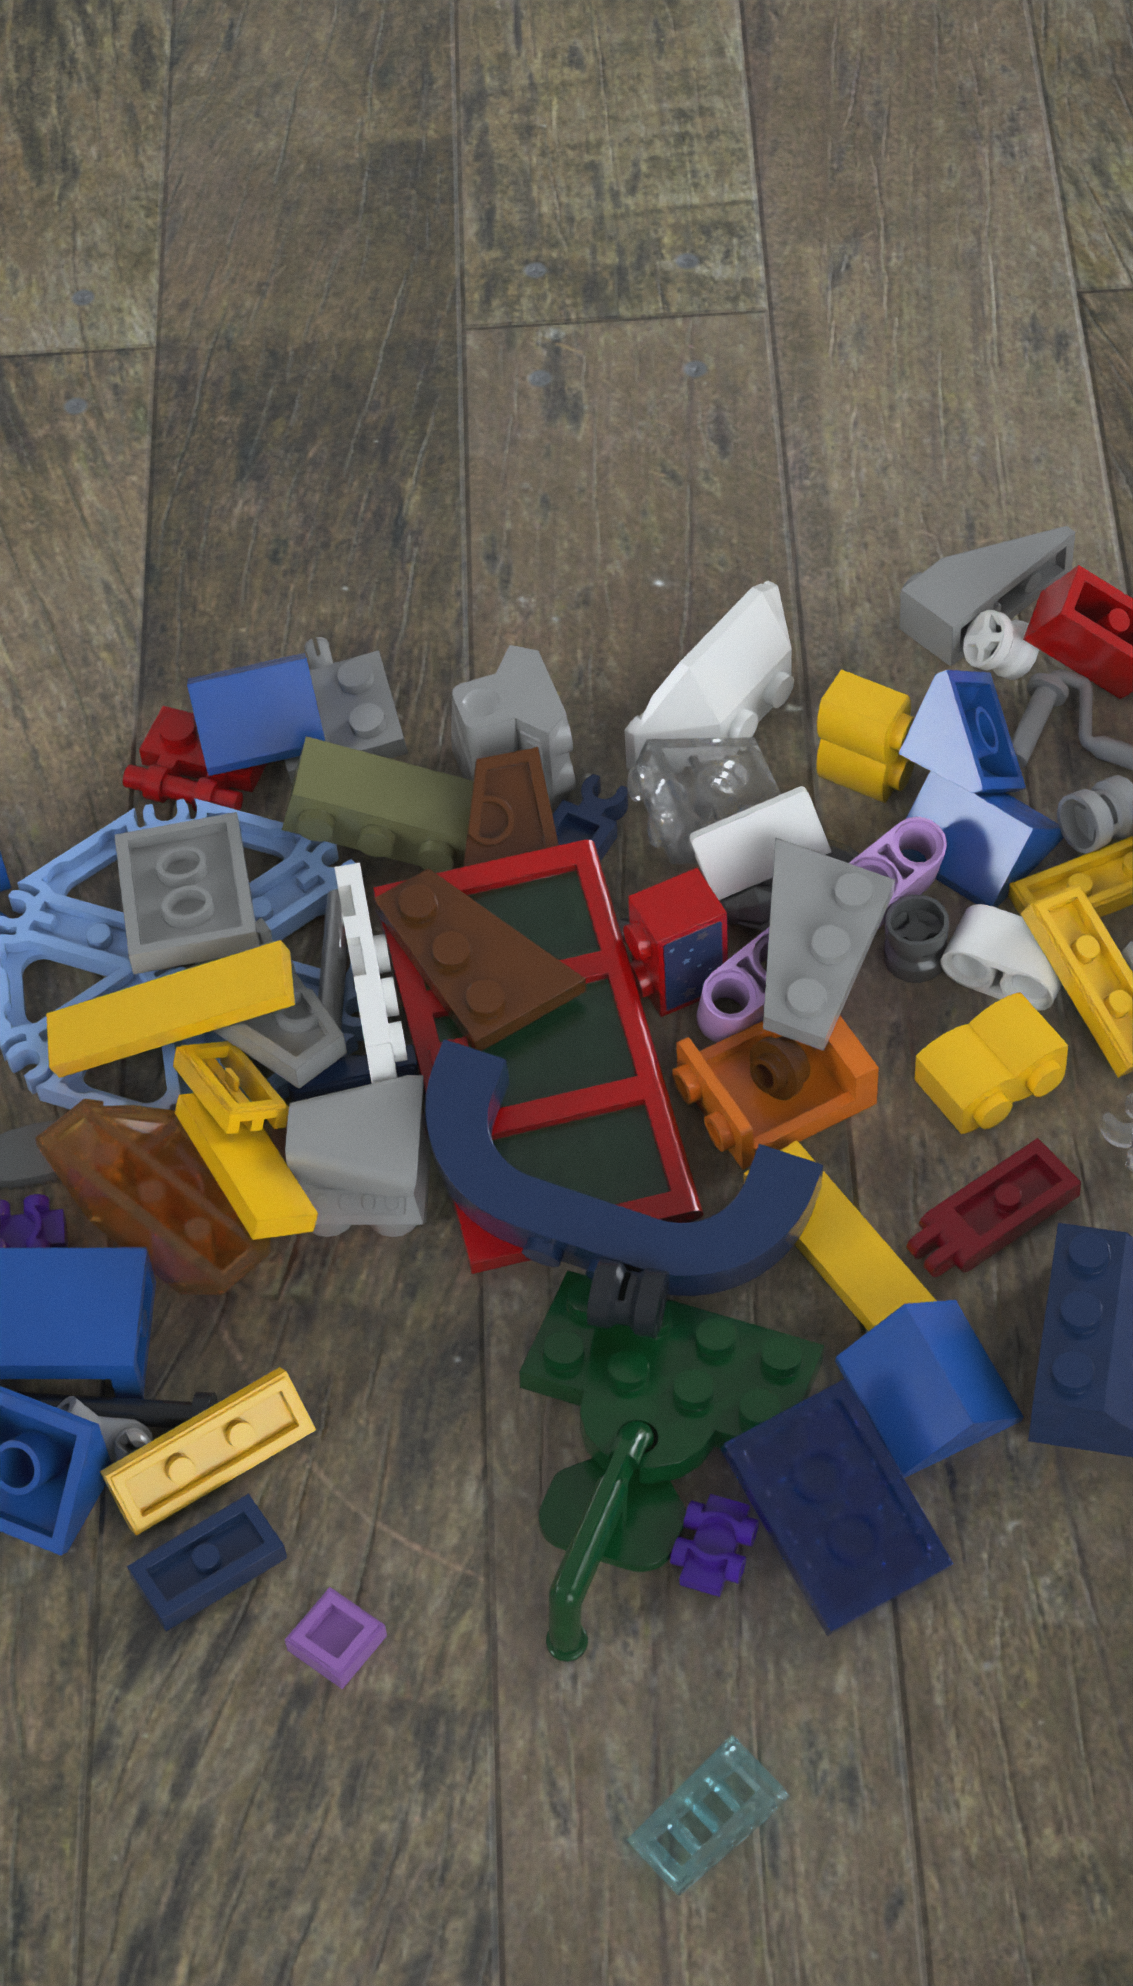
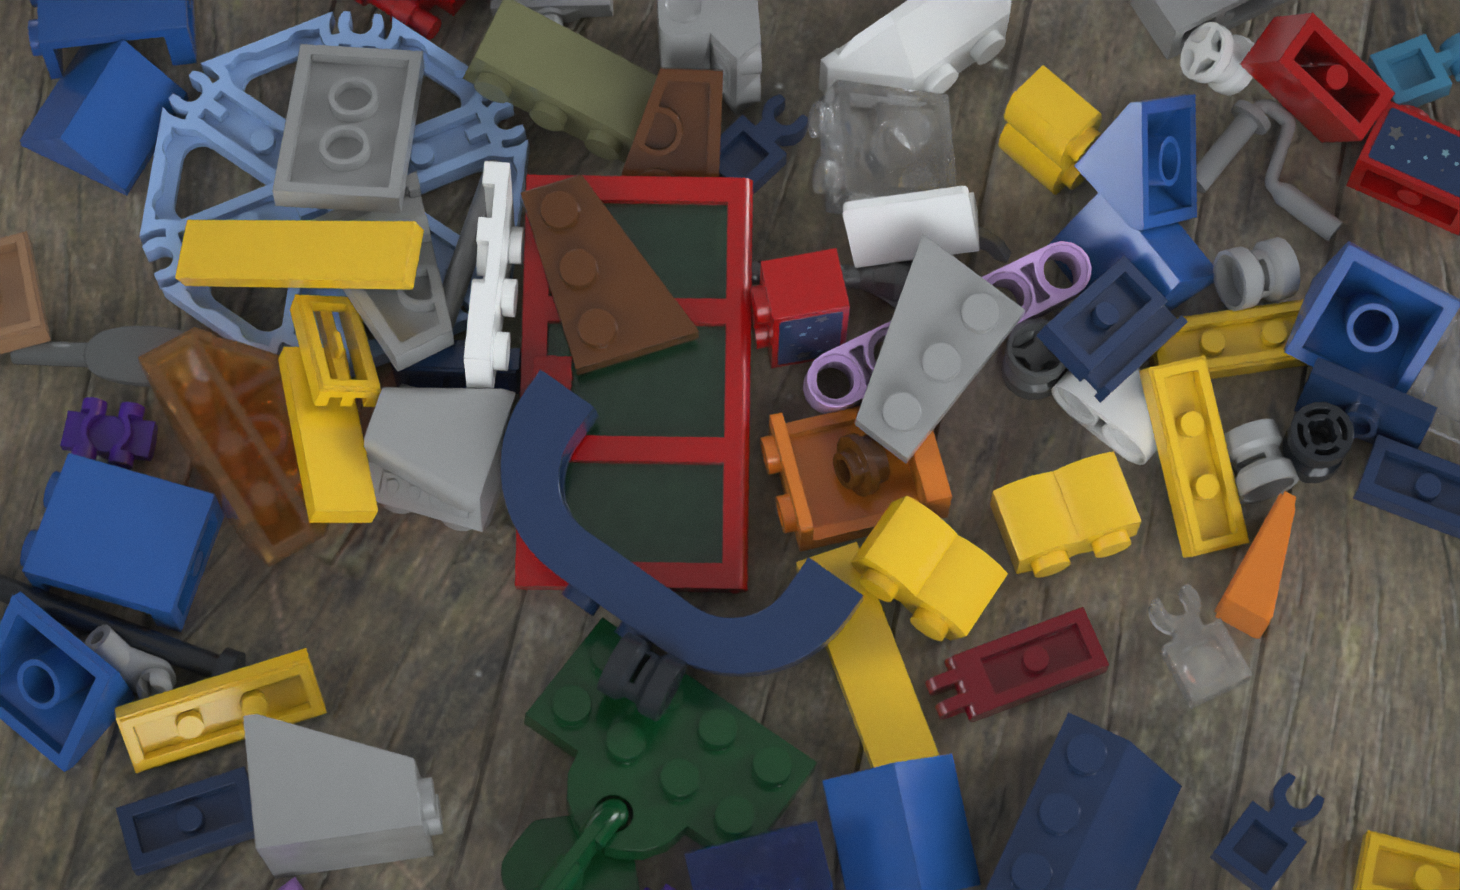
camera: 10 degrees right, 15 degrees up
(356, 1491) = (334, 801): none -> light grey slope
(877, 1141) = (928, 570): none -> yellow brick
(981, 883) = (1111, 328): none -> dark blue plate

